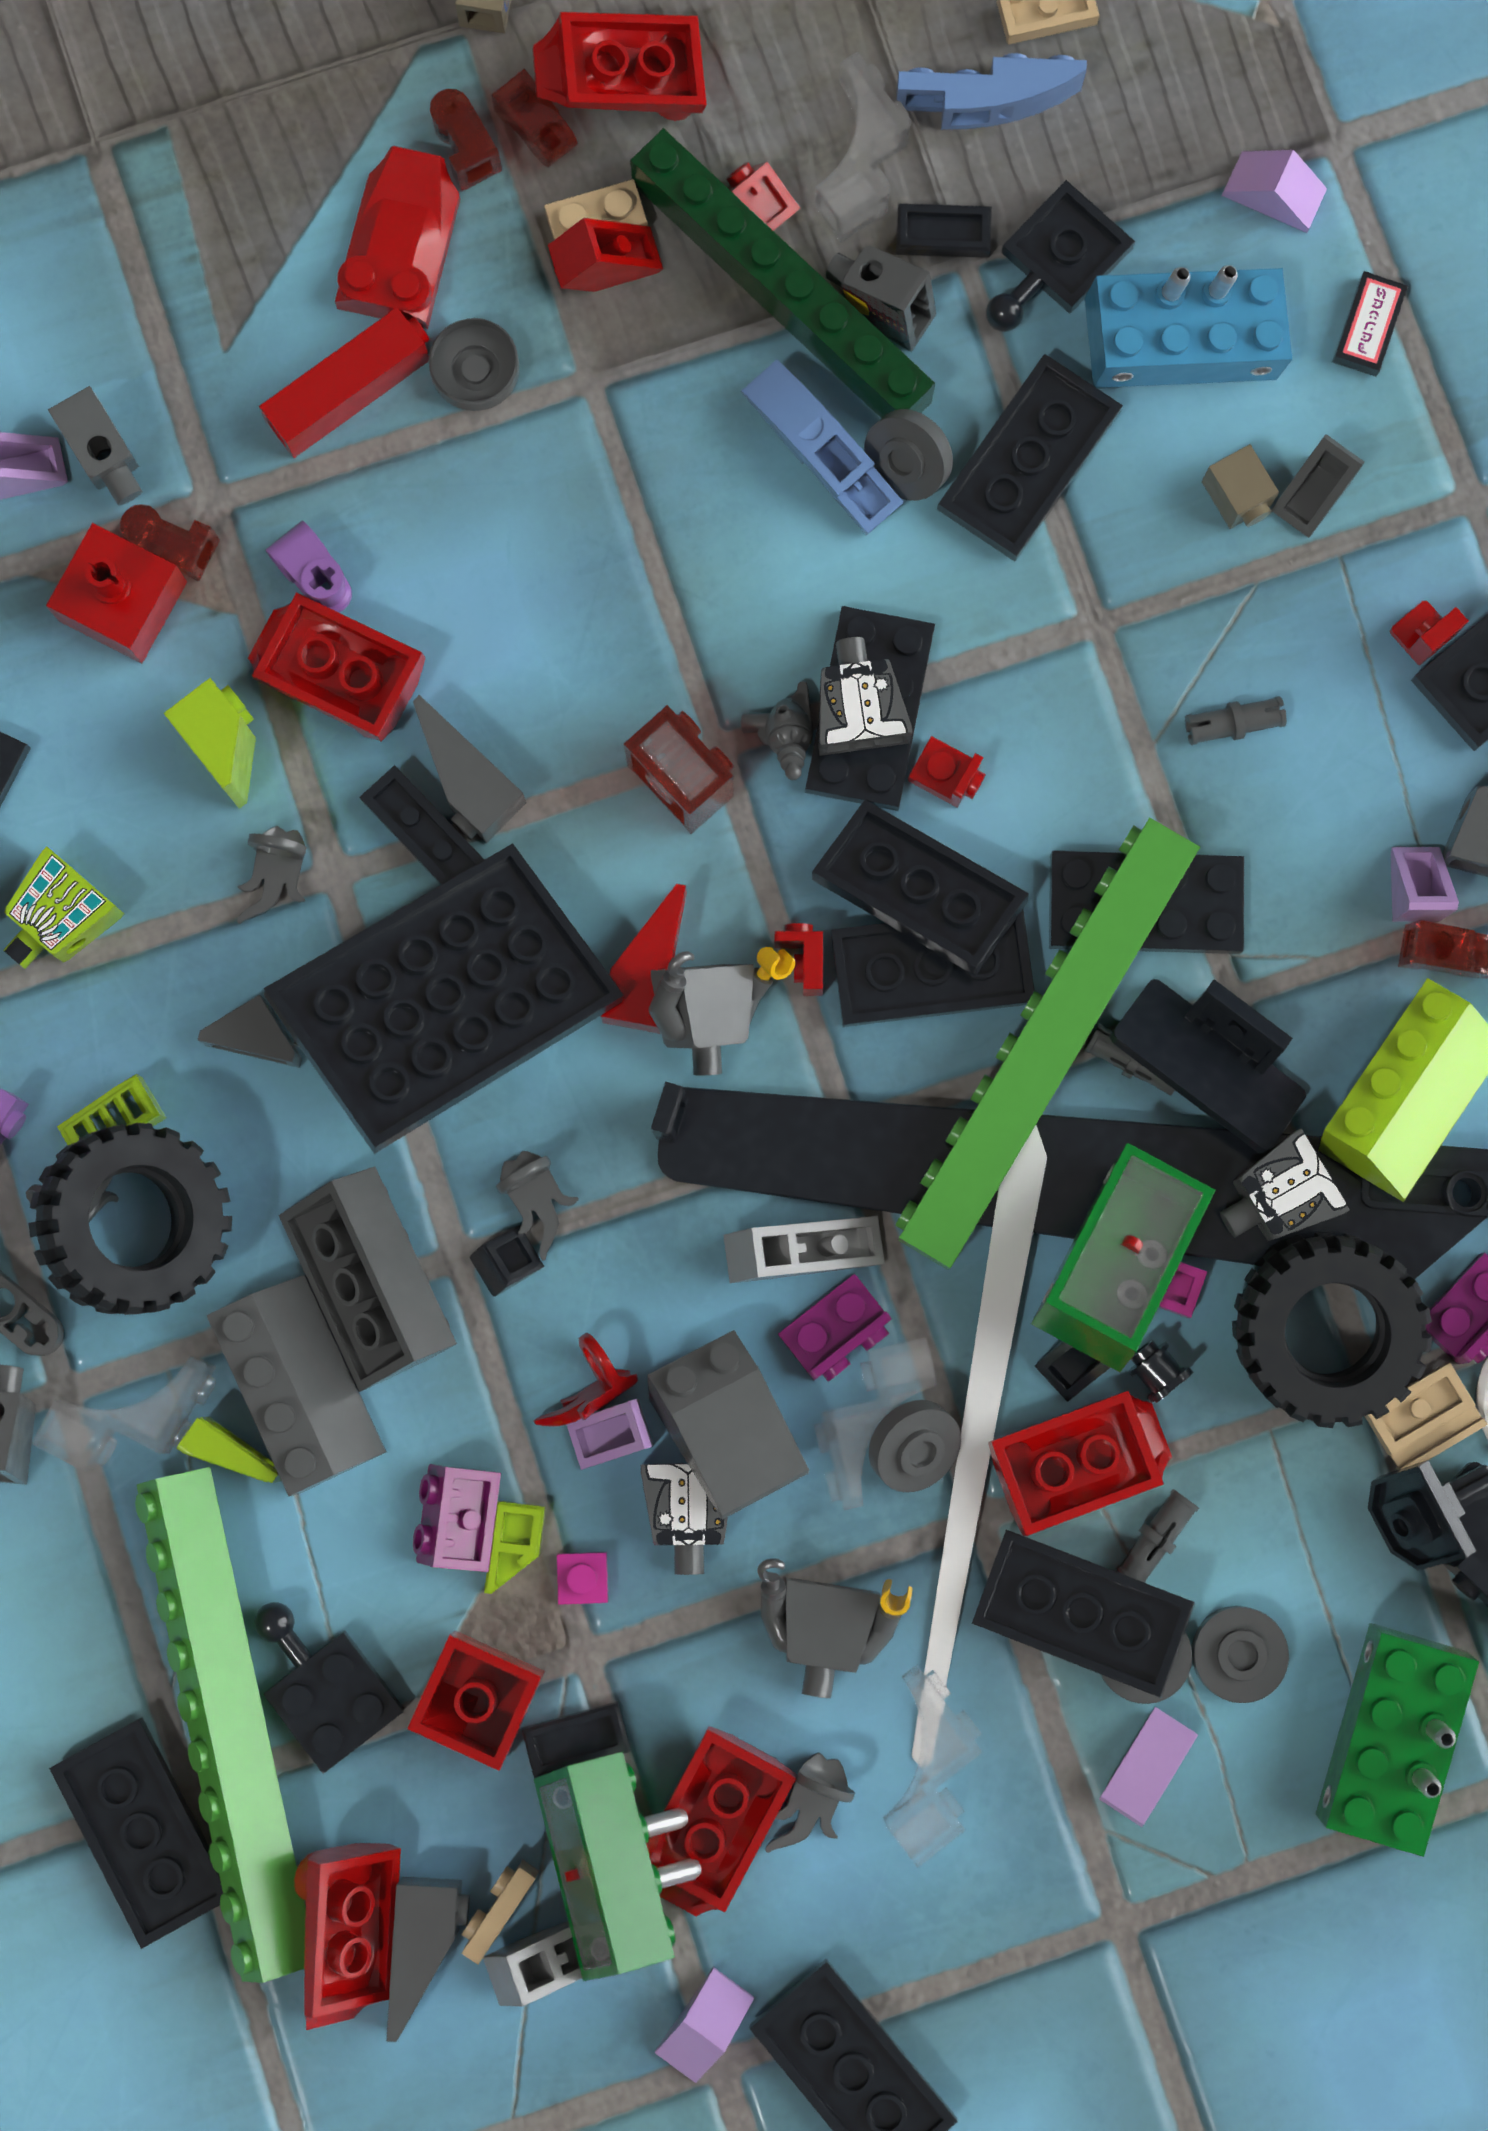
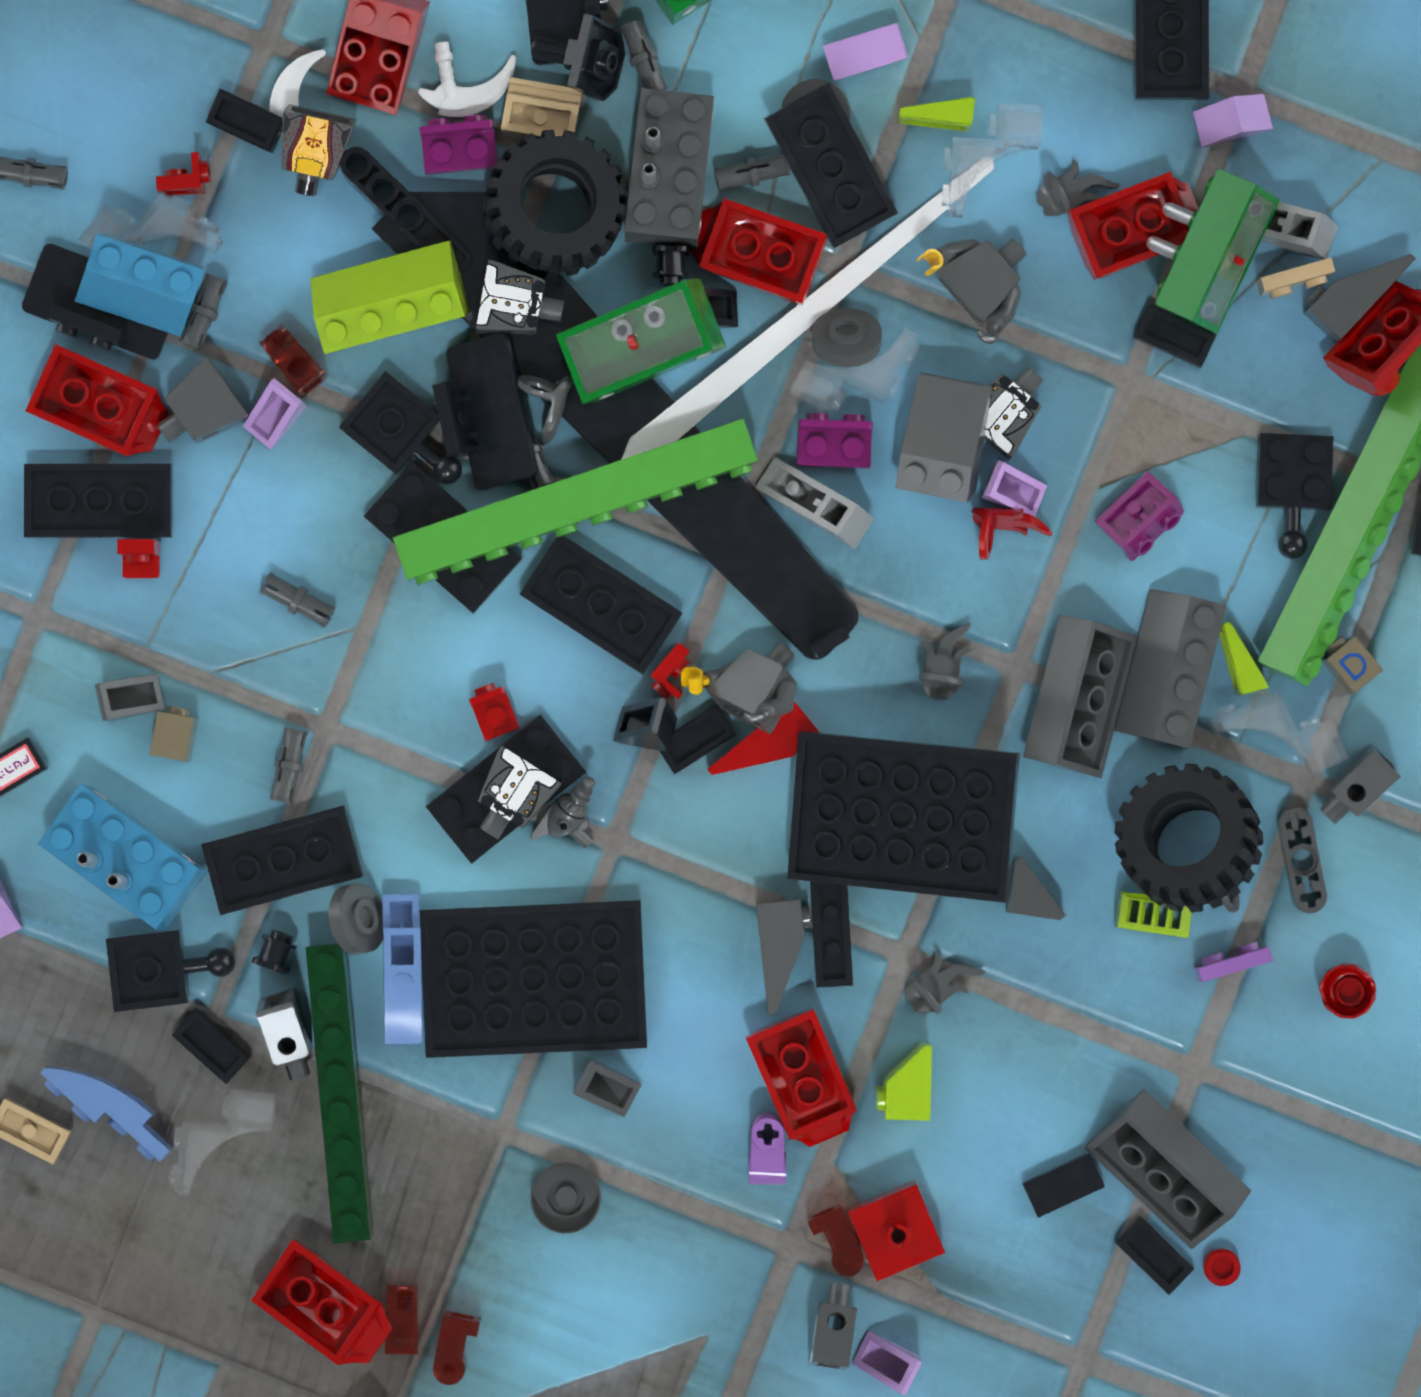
camera: 140 degrees left, 5 degrees up
(56, 911) = (1086, 1065): torso -> none
(109, 1547) = (1351, 663): none -> dark tan brick
(346, 381) = (651, 1249): red brick -> none
(400, 237) = (545, 1315): red slope -> none
(476, 1700) = (1212, 403): red slope -> none
(506, 1261) = (991, 640): black slope -> none
(514, 1542) = (1118, 476): lime tile -> none
(524, 498) = (606, 1087): none -> dark grey slope
(582, 1578) = (1097, 423): dark pink plate -> none
(603, 254) = (431, 1199): red slope -> none
(611, 203) = (414, 1230): tan plate -> none
(680, 767) = (652, 841): clear red piece -> none
(684, 545) = (533, 979): none -> black plate
(723, 912) = (697, 739): none -> black tile
(763, 193) = (306, 1158): bracket -> none
(782, 882) = (646, 725): none -> black slope
(920, 887) = (570, 654): black plate -> none
(959, 363) = (275, 951): none -> black brick
(1008, 1771) = (946, 115): none -> lime slope
(1103, 553) = (288, 765): none -> dark grey pin
(1157, 1130) = (557, 395): none -> dark grey piece
(1183, 1290) = (616, 296): dark pink plate -> none
(1240, 1654) = (760, 69): dark grey piece -> none
(1246, 1467) = (669, 168): none -> dark grey piece
(1291, 970) = (394, 426): none -> black plate
(1369, 1563) = (643, 56): none -> dark grey pin

